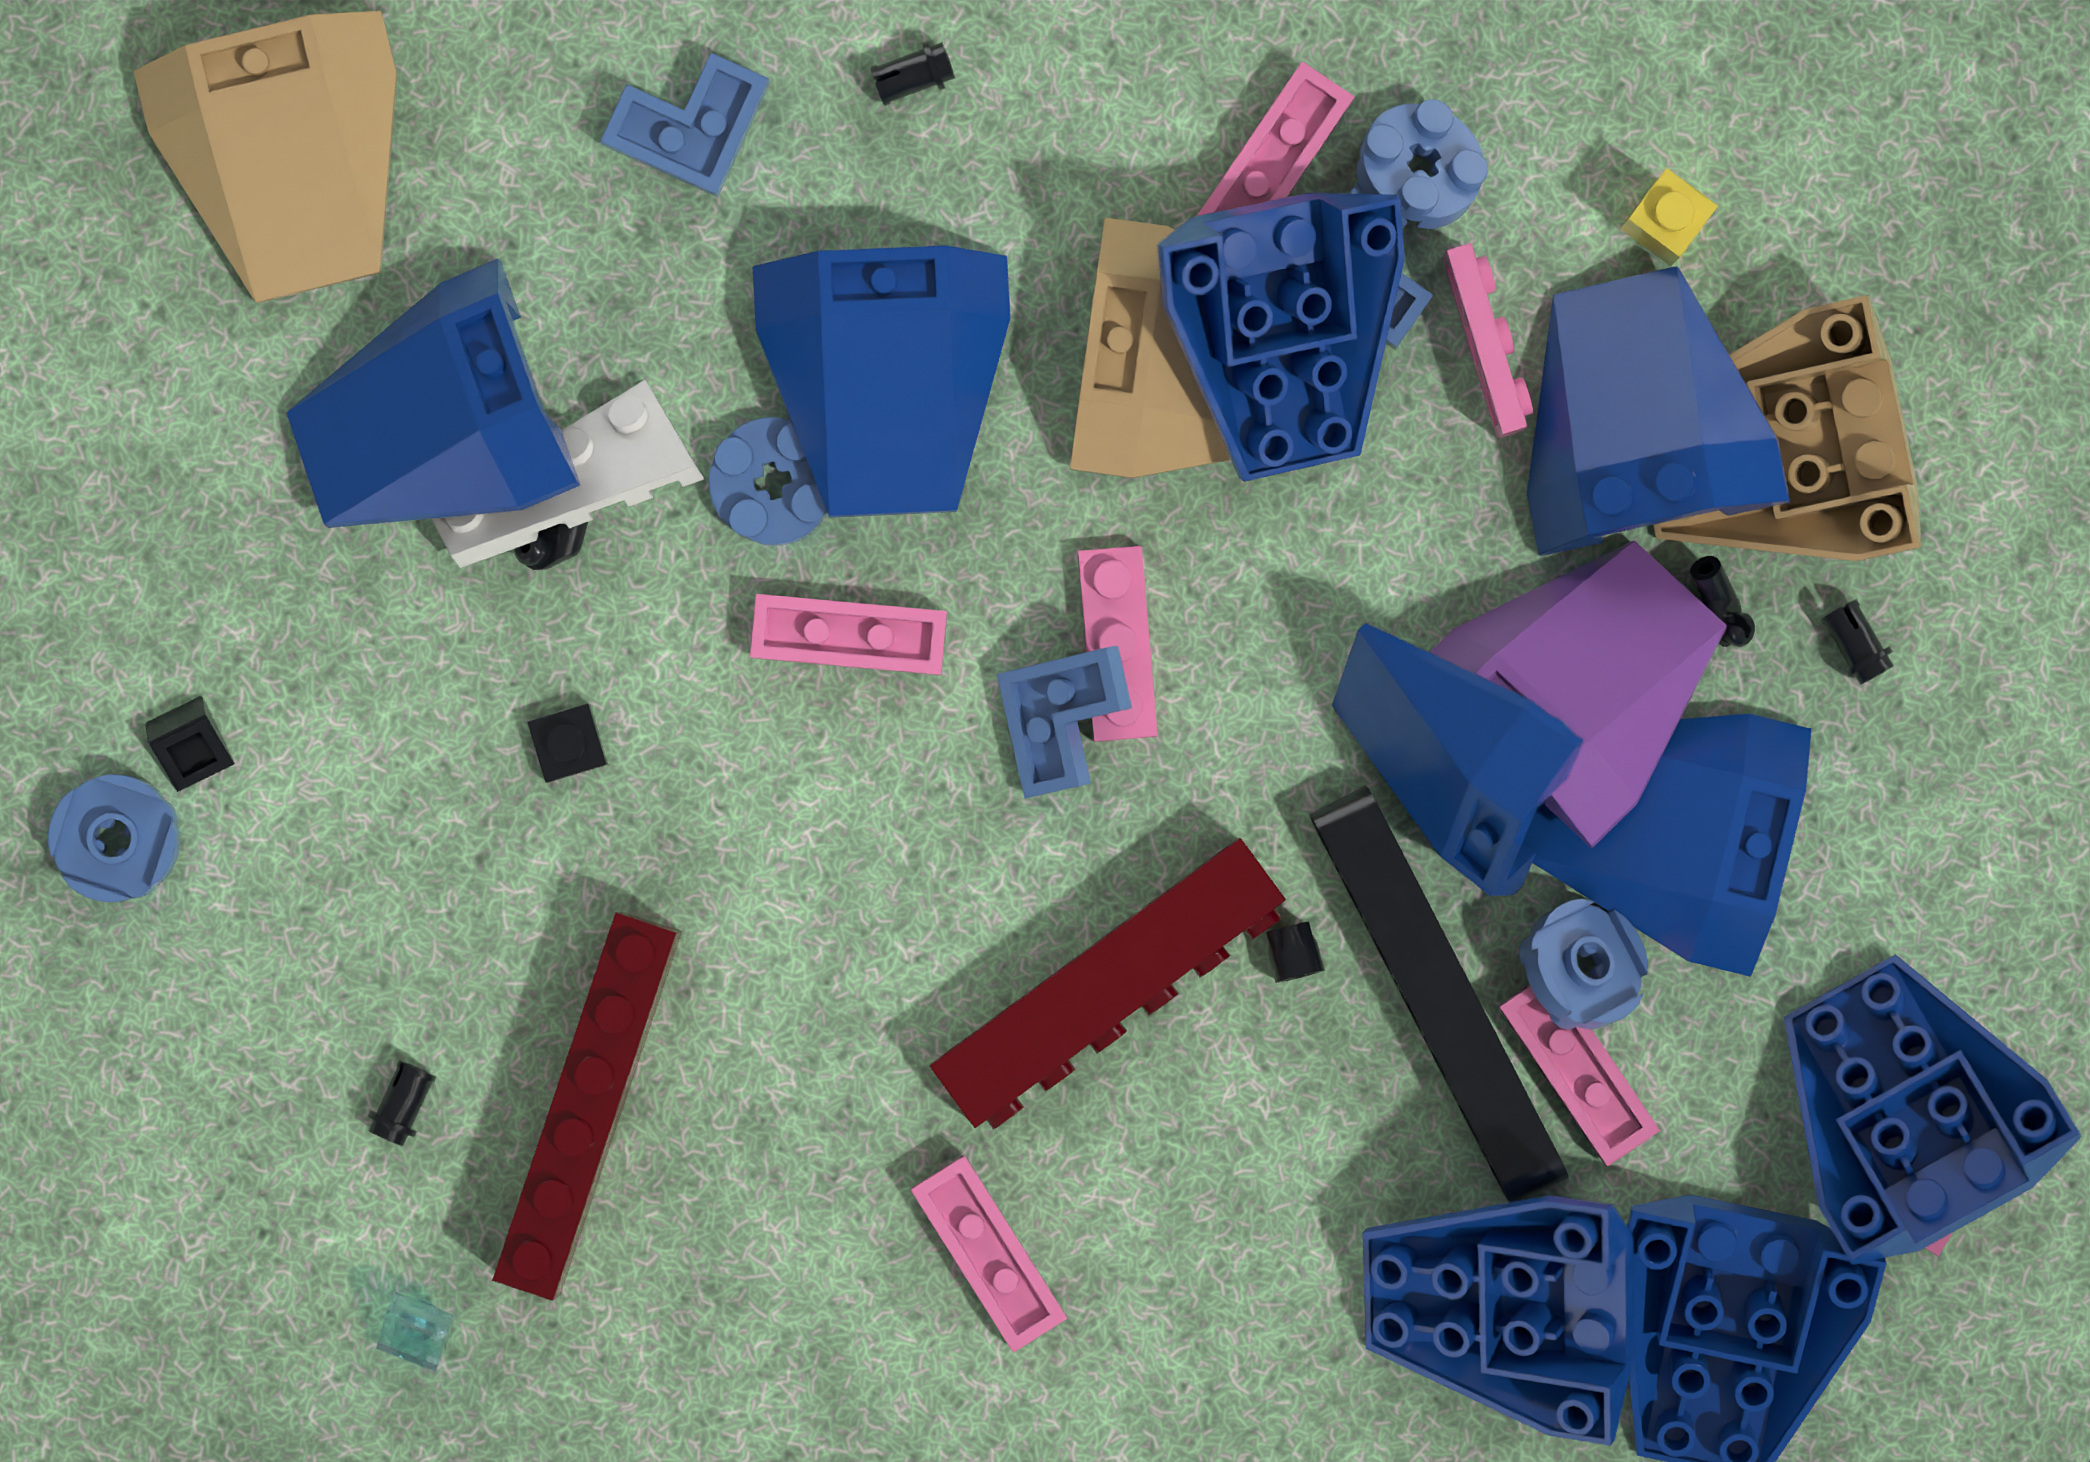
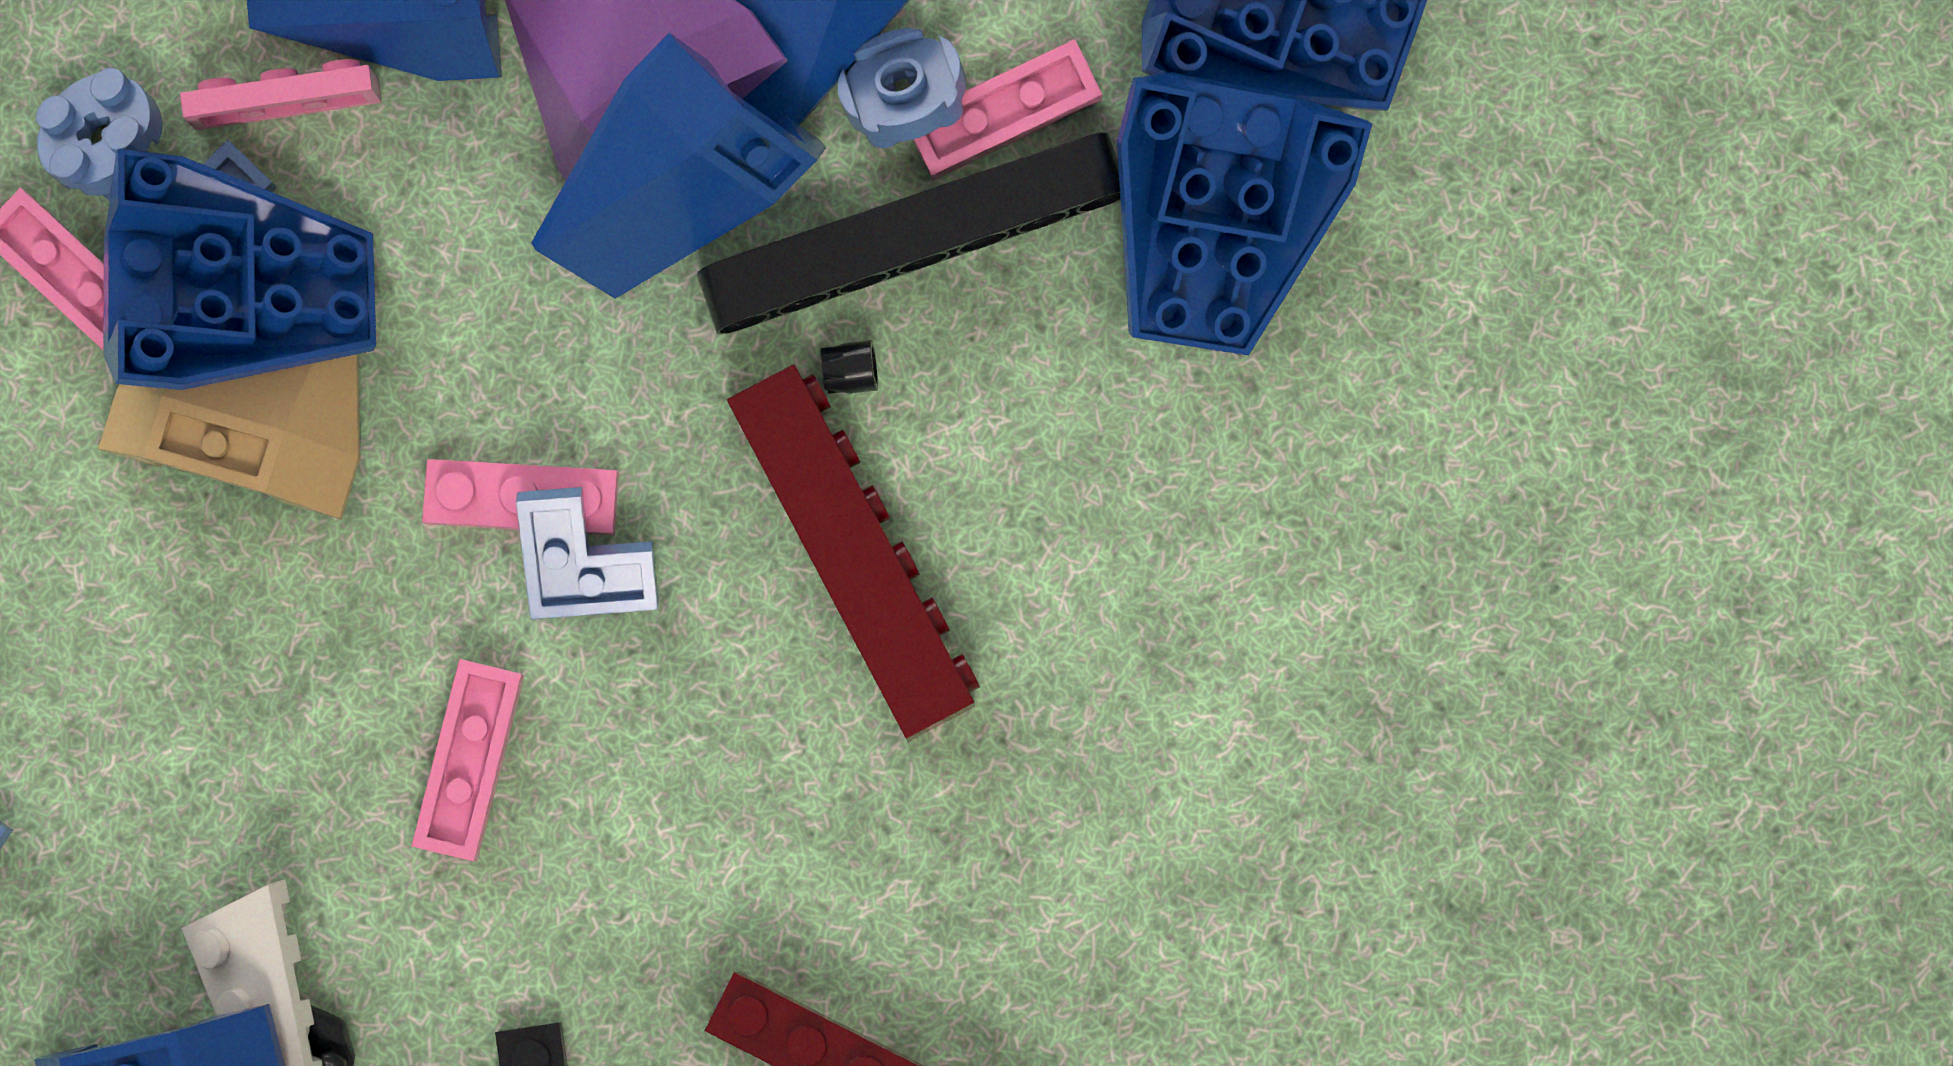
camera: 80 degrees left, 5 degrees down
(751, 511) = (332, 839): medium blue plate -> none
(885, 368) = (205, 685): blue wedge -> none
(989, 1253) = (1102, 709): bright pink plate -> none

